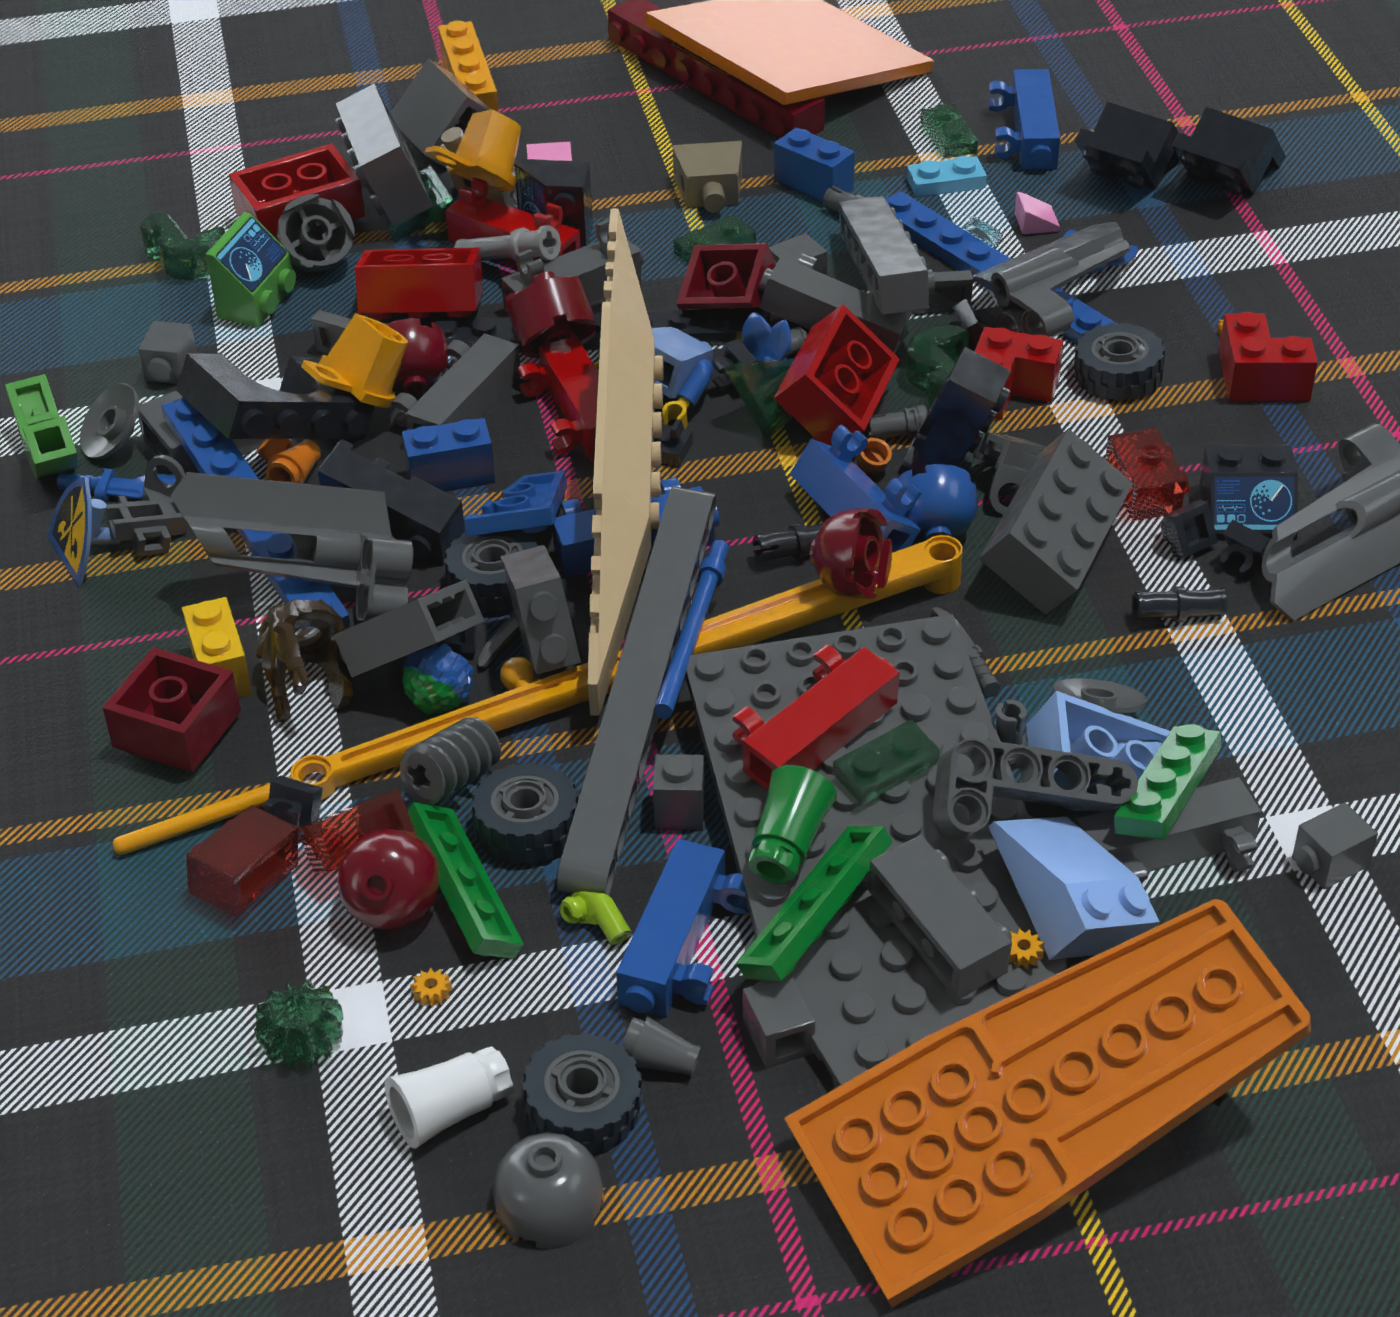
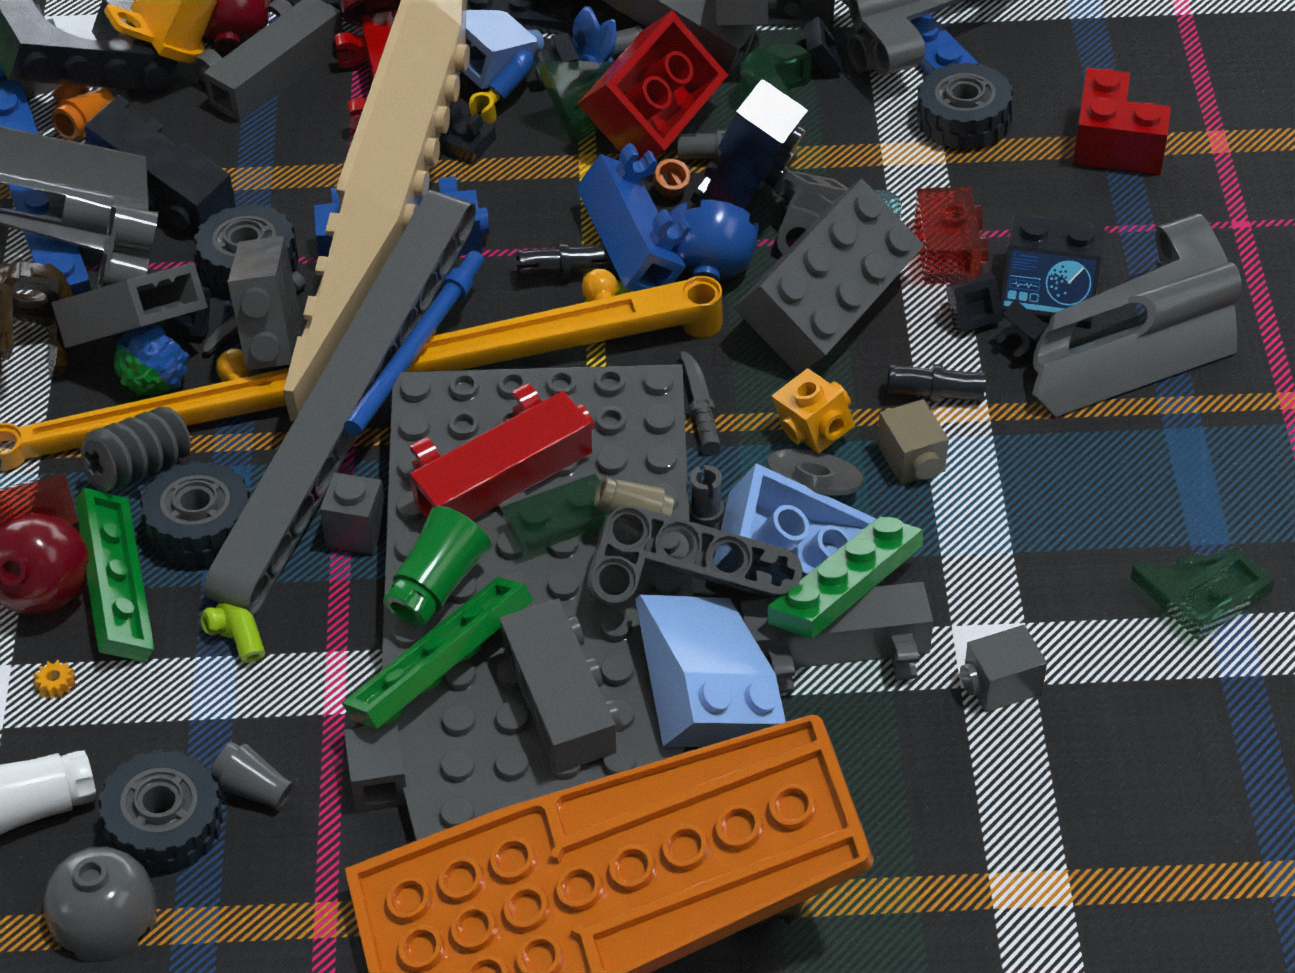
camera: 10 degrees right, 5 degrees up
(450, 454) = (237, 123): blue brick -> none
(525, 505) = (293, 189): blue wing -> none
(671, 927) = (302, 655): blue brick -> none
(852, 553) = (598, 286): dark red cylinder -> none
(944, 734) = (618, 493): none -> dark tan cone
(1031, 943) = (642, 739): light orange piece -> none
(1032, 361) = (849, 97): red brick -> none
(1080, 641) = (813, 410): none -> light orange brick
(1178, 657) = (912, 442): none -> dark tan brick

